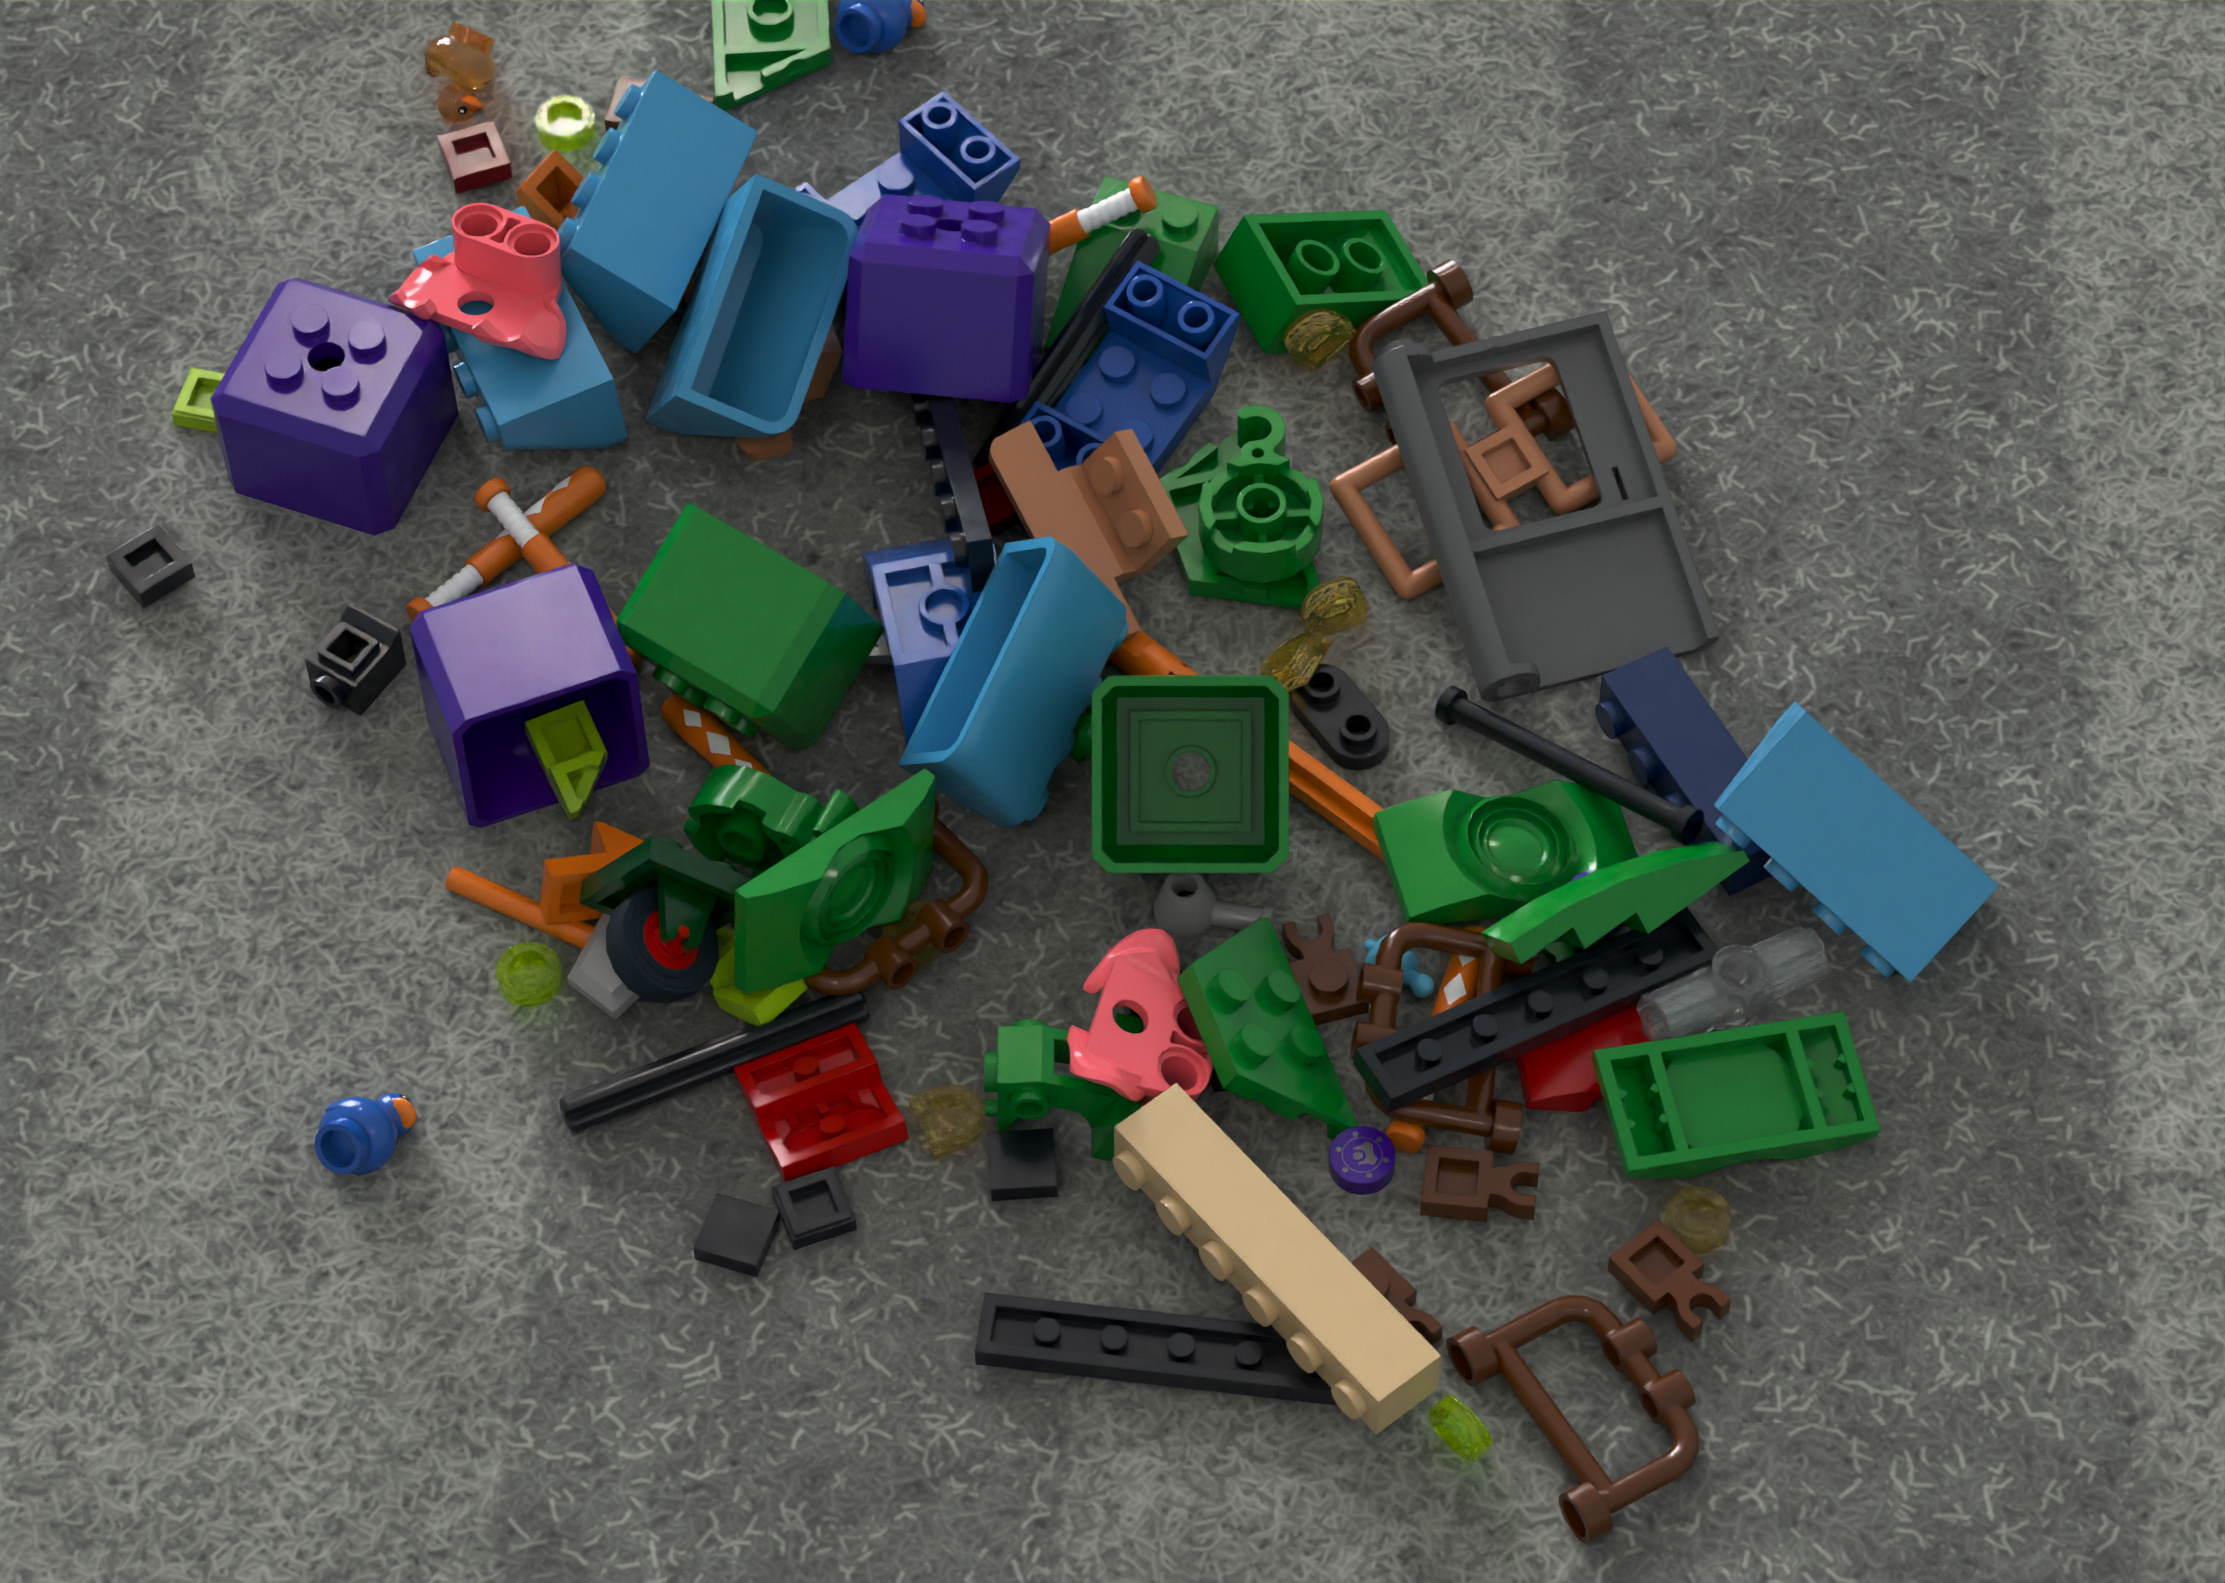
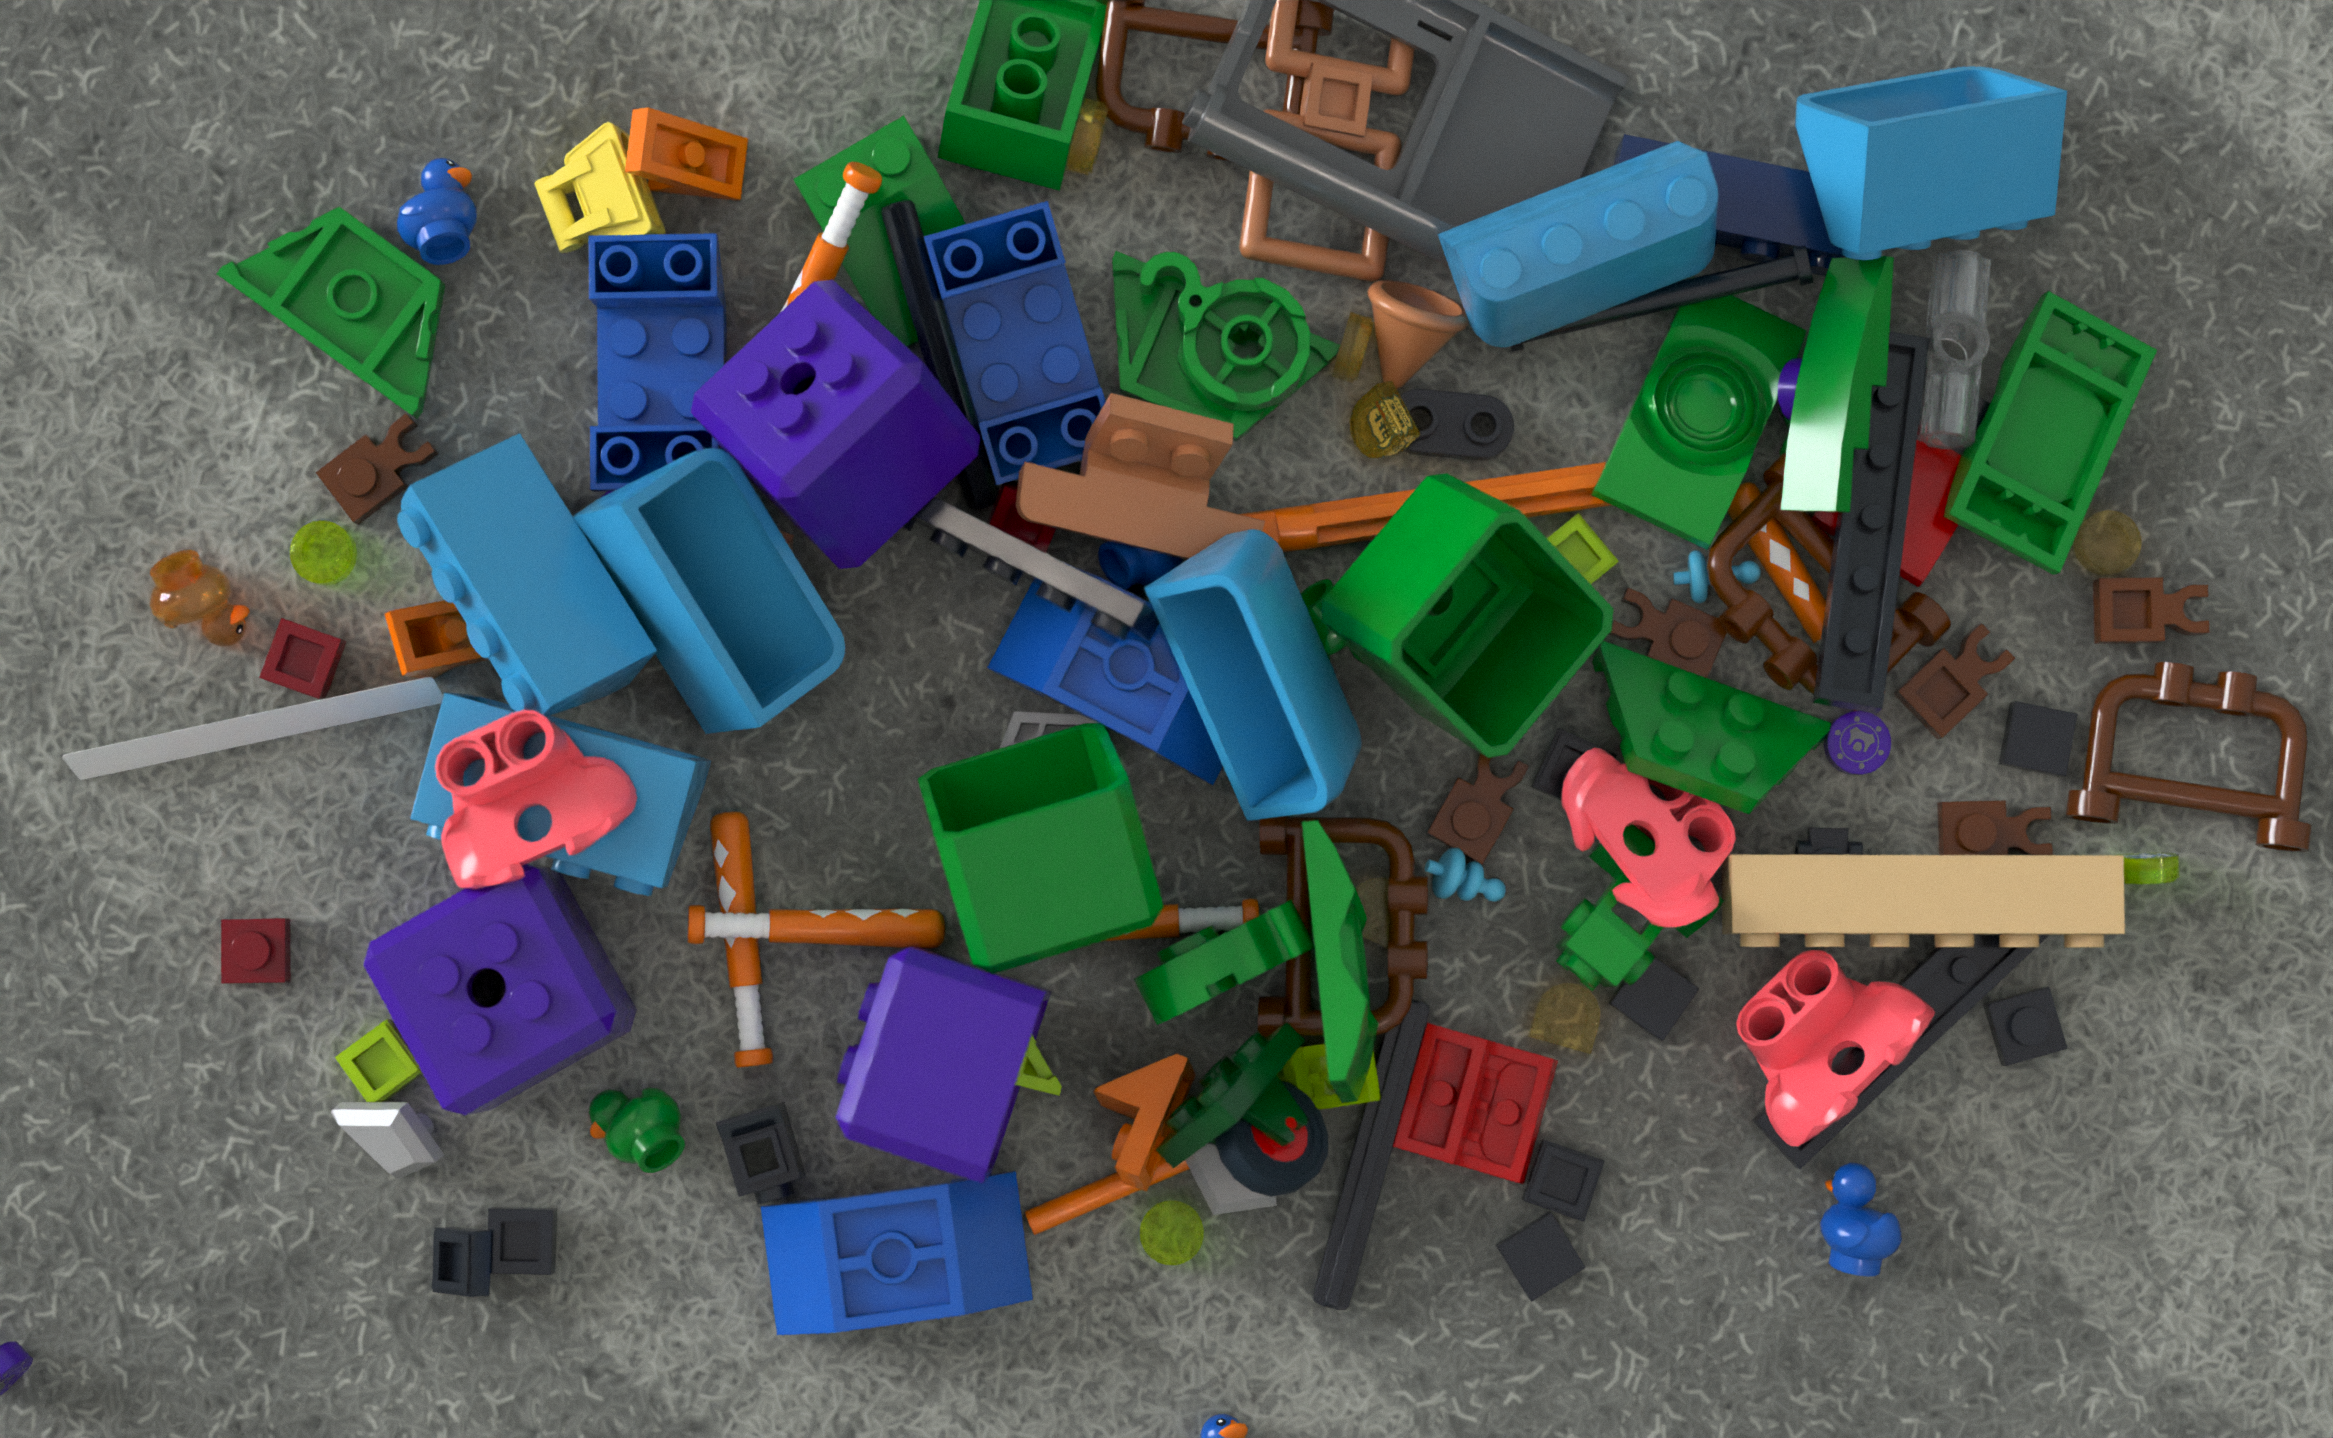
camera: 50 degrees left, 30 degrees up
(101, 537) = (461, 1261): none -> black tile
(161, 437) = (390, 1134): none -> light grey piece
(230, 274) = (255, 950): none -> dark red plate
(305, 577) = (638, 1129): none -> green animal
(360, 794) = (896, 1255): none -> blue slope
(370, 144) = (254, 728): none -> white sticker
(966, 1434) = (1854, 1232): none -> blue animal
(994, 972) = (1467, 880): none -> medium azure hair
(996, 89) = (607, 195): none -> light yellow piece
(1052, 943) = (1473, 813): none -> reddish brown plate
(1061, 120) = (685, 156): none -> orange slope
(1101, 1263) = (1801, 1088): none -> coral piece
(1247, 1445) = (2025, 1026): none -> black plate
(1317, 868) = (1583, 548): none -> lime tile
(1383, 631) = (1411, 326): none -> nougat hat
(1490, 1284) = (2038, 739): none -> black tile
(1547, 652) = (1585, 245): none -> dark azure windscreen

